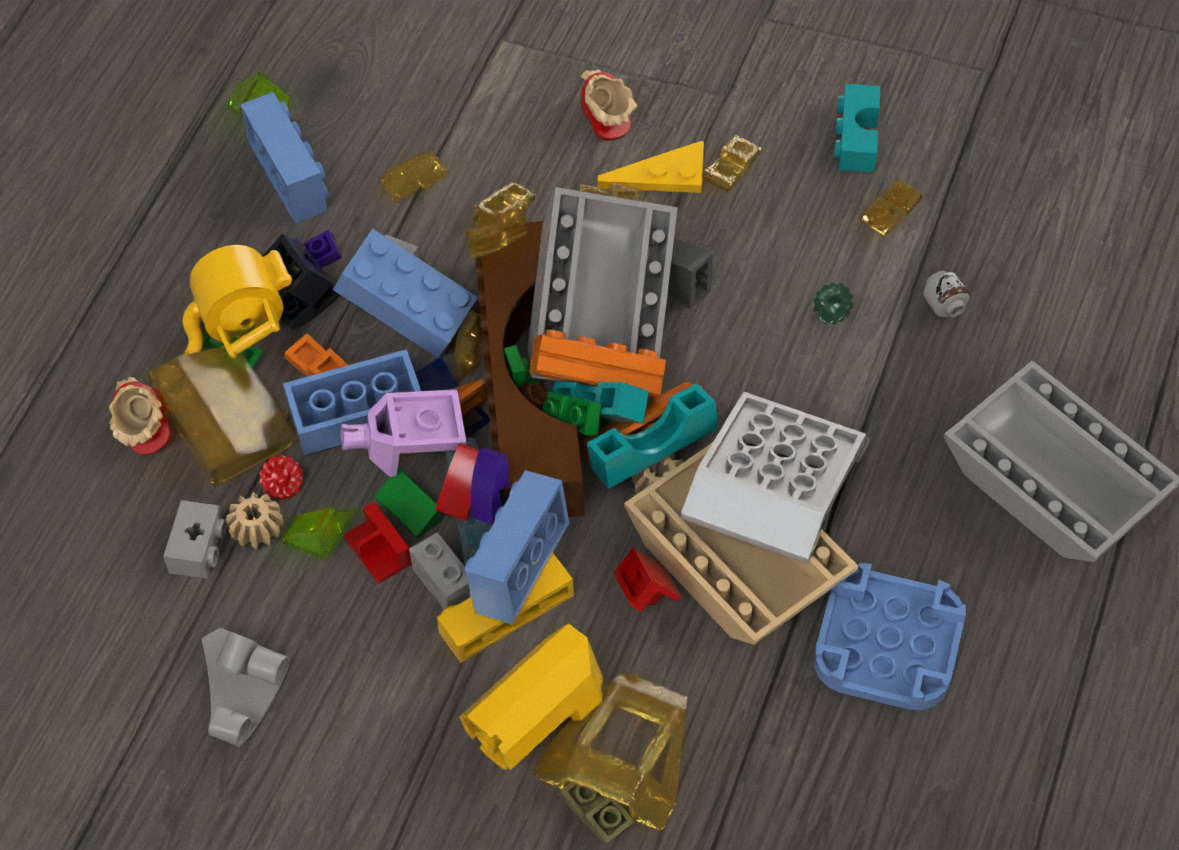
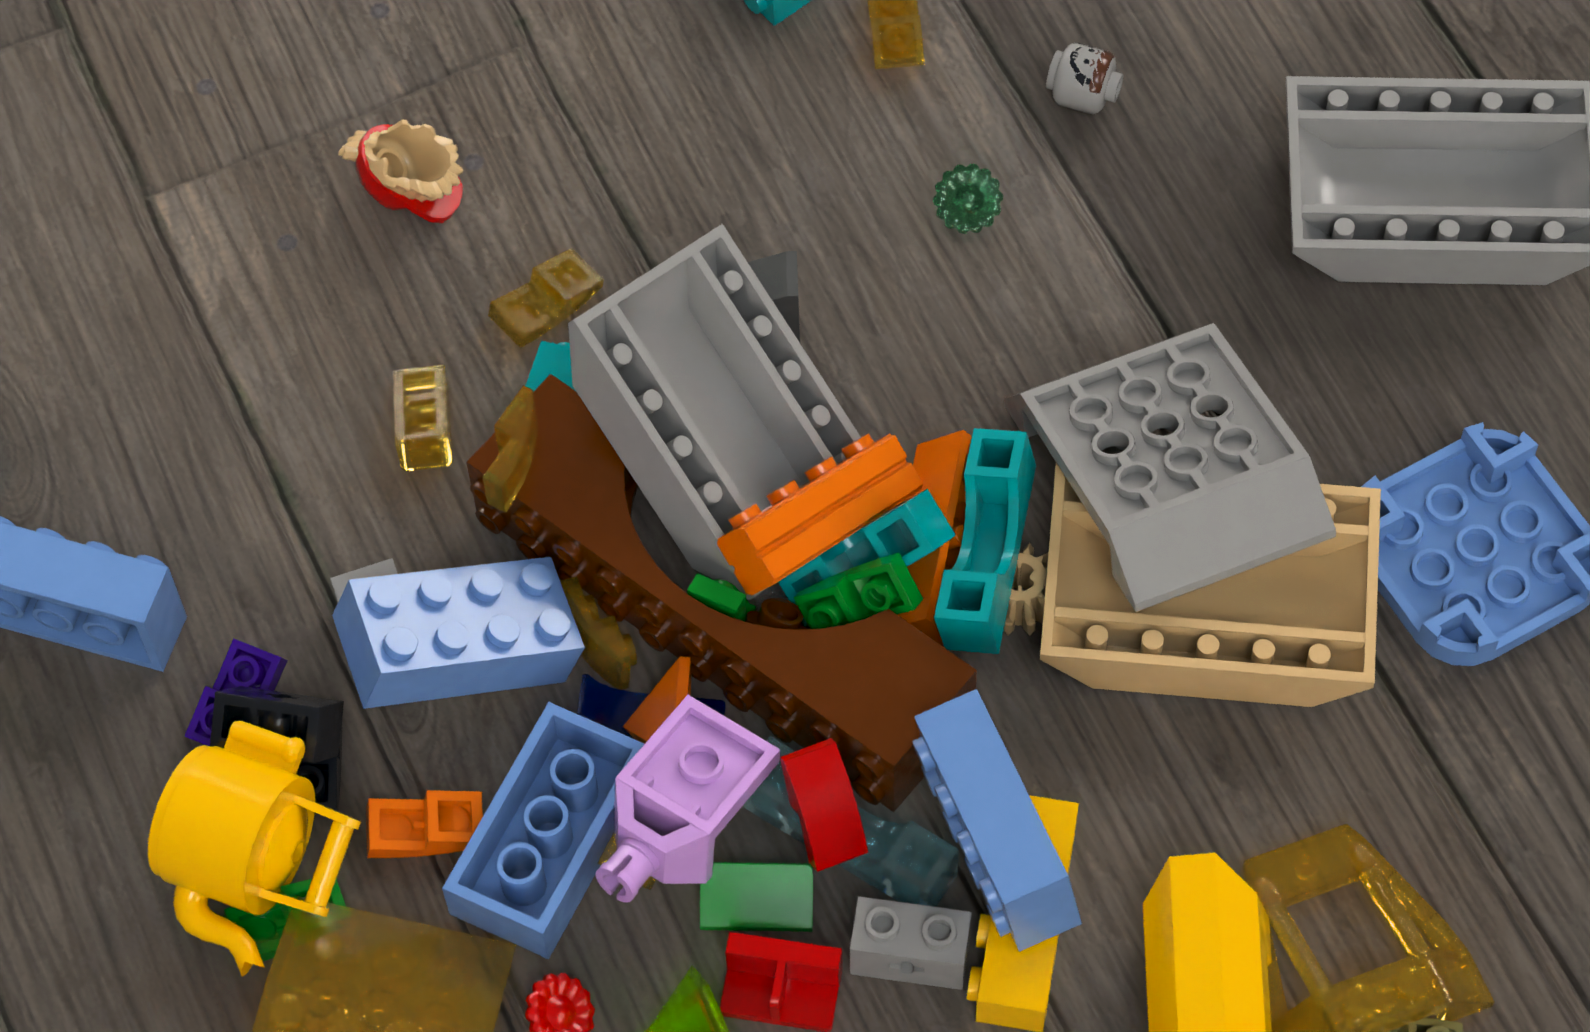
camera: 45 degrees left, 5 degrees up
(409, 175) = (255, 472): clear yellow slope -> none
(488, 478) = (874, 779): dark purple slope -> none
(644, 580) = (1152, 730): red panel -> none
(668, 172) = (577, 196): yellow wing -> none
(733, 163) = (643, 122): clear yellow slope -> none

